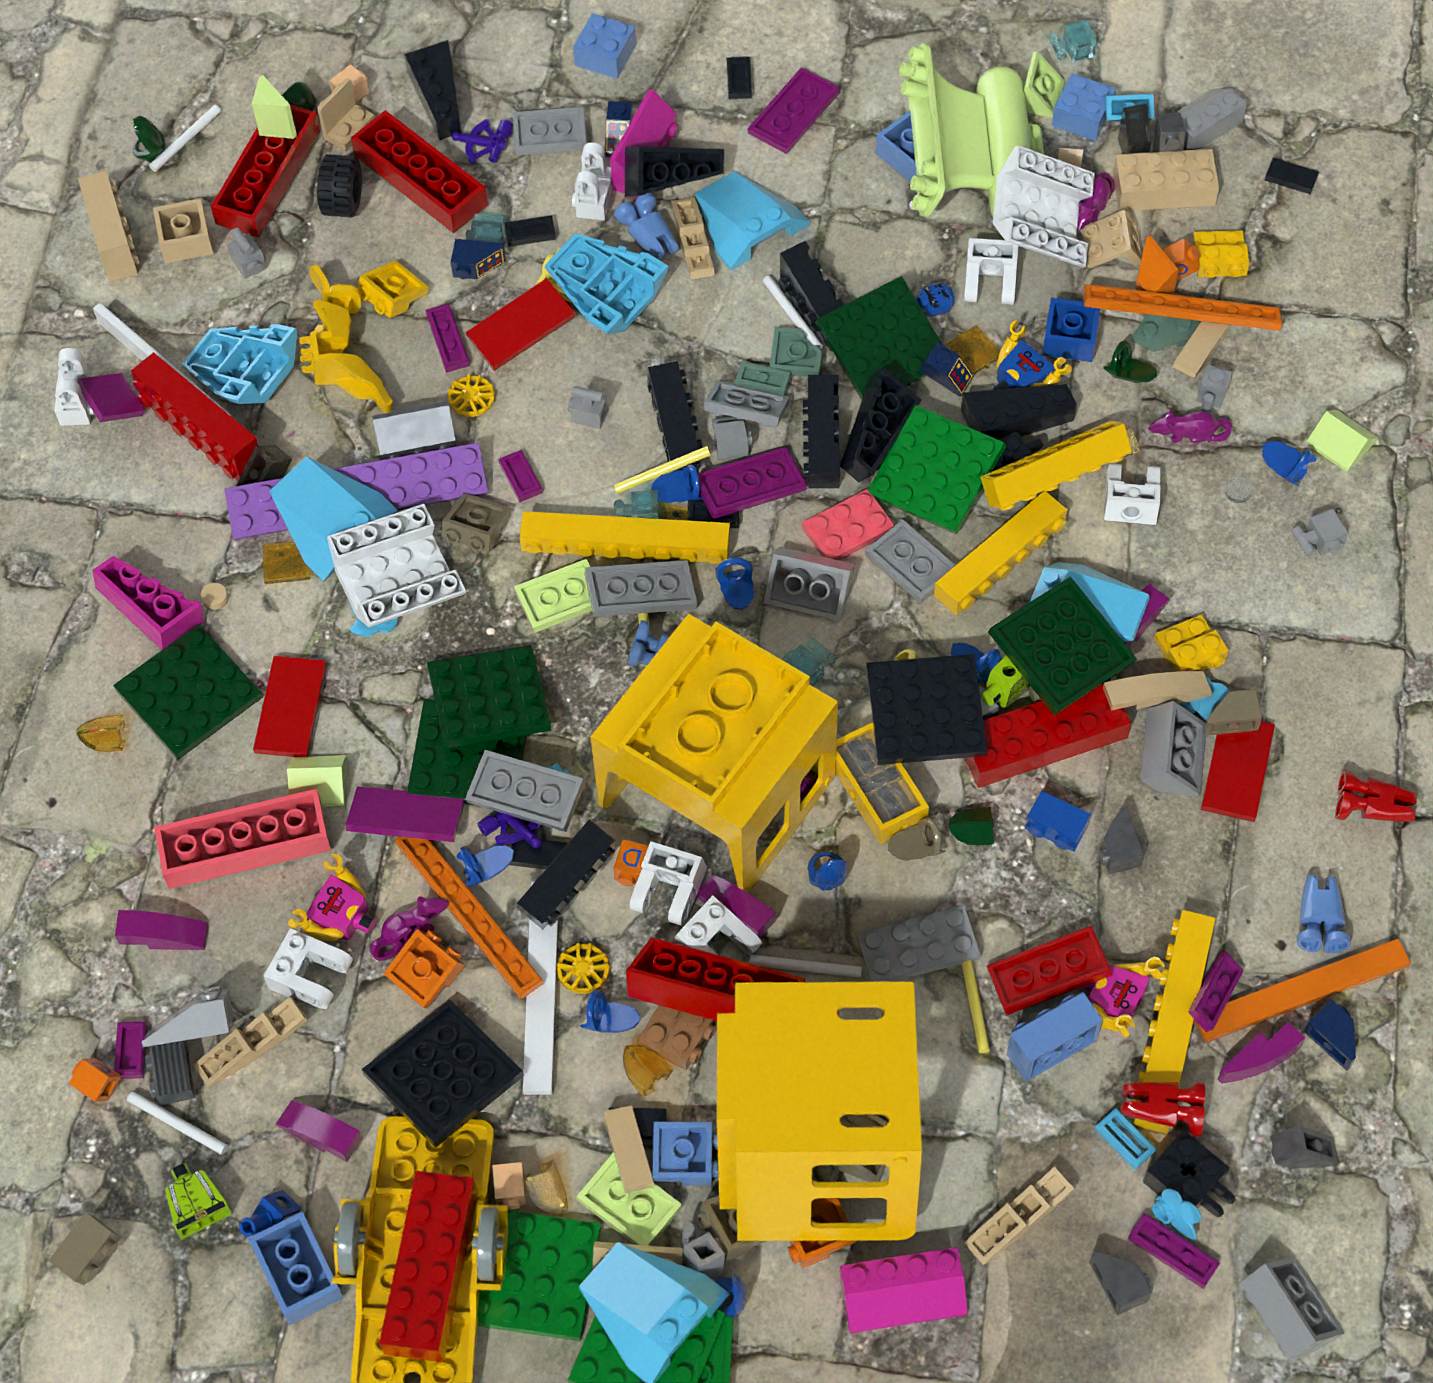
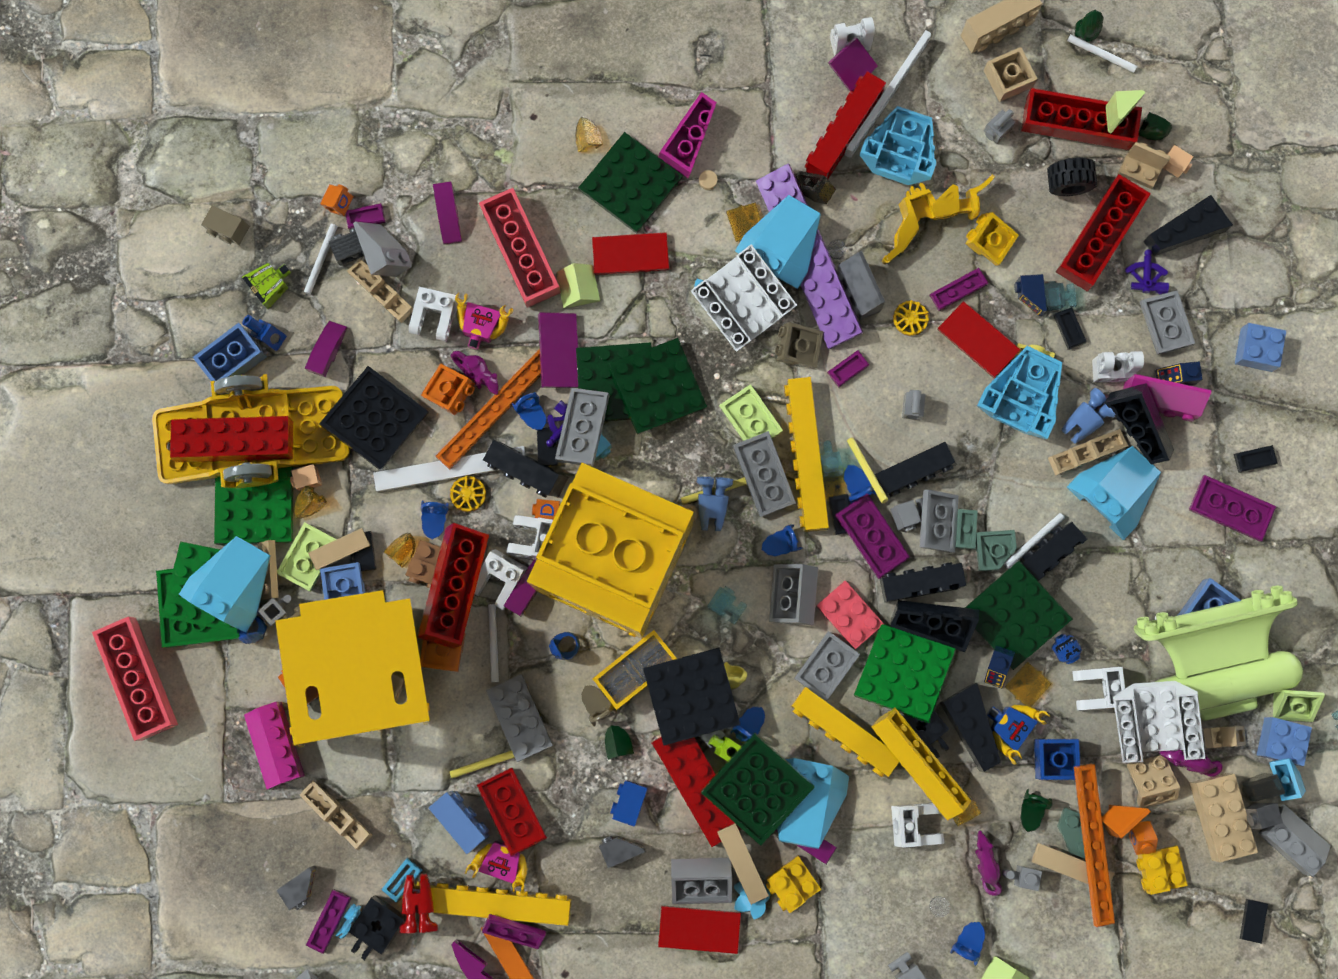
camera: 80 degrees right, 20 degrees up
(1235, 713) = (737, 923): dark tan slope -> none

